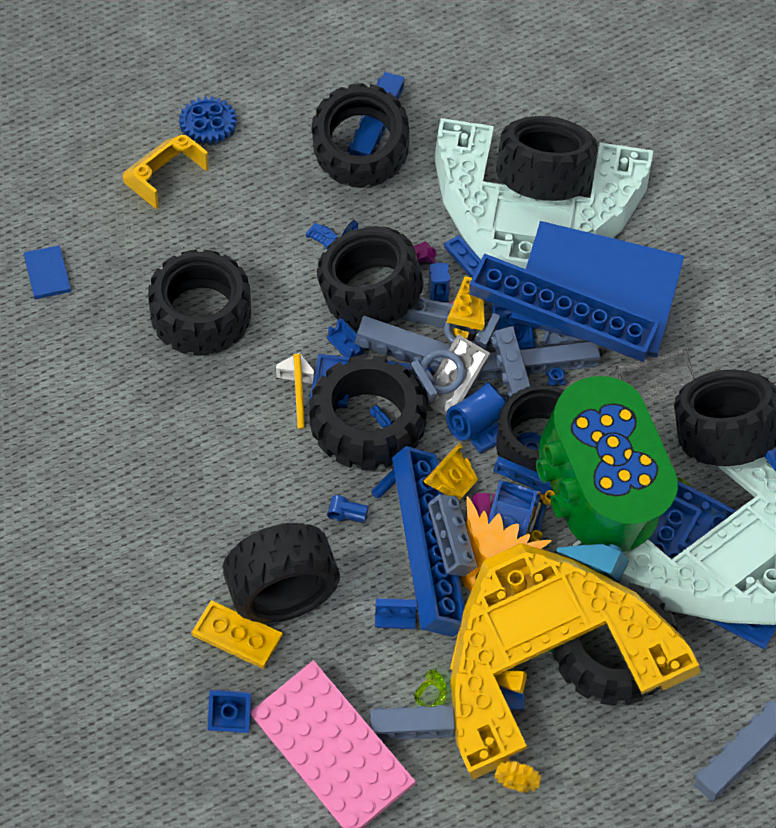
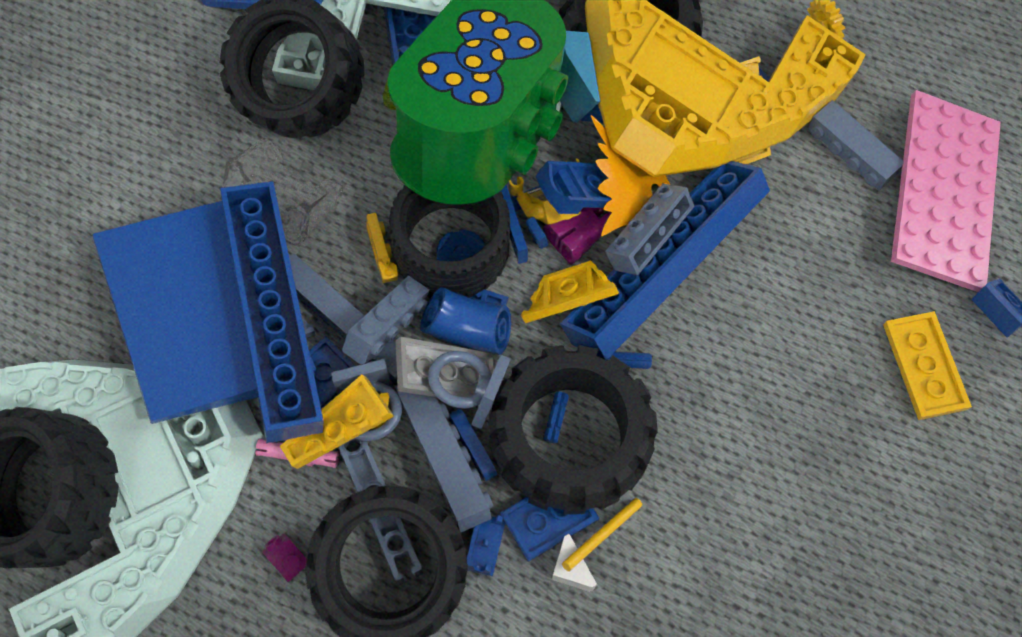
camera: 130 degrees left, 10 degrees up
(281, 572) = (866, 333): black tyre -> none
(342, 509) = (698, 375): blue piece -> none
(395, 613) = (765, 236): blue bracket -> none
(433, 678) = (799, 151): clear neon green piece -> none
(439, 282) = (320, 492): blue brick -> none
(463, 255) = (251, 498): blue plate -> none
(556, 372) = (349, 283): blue plate -> none

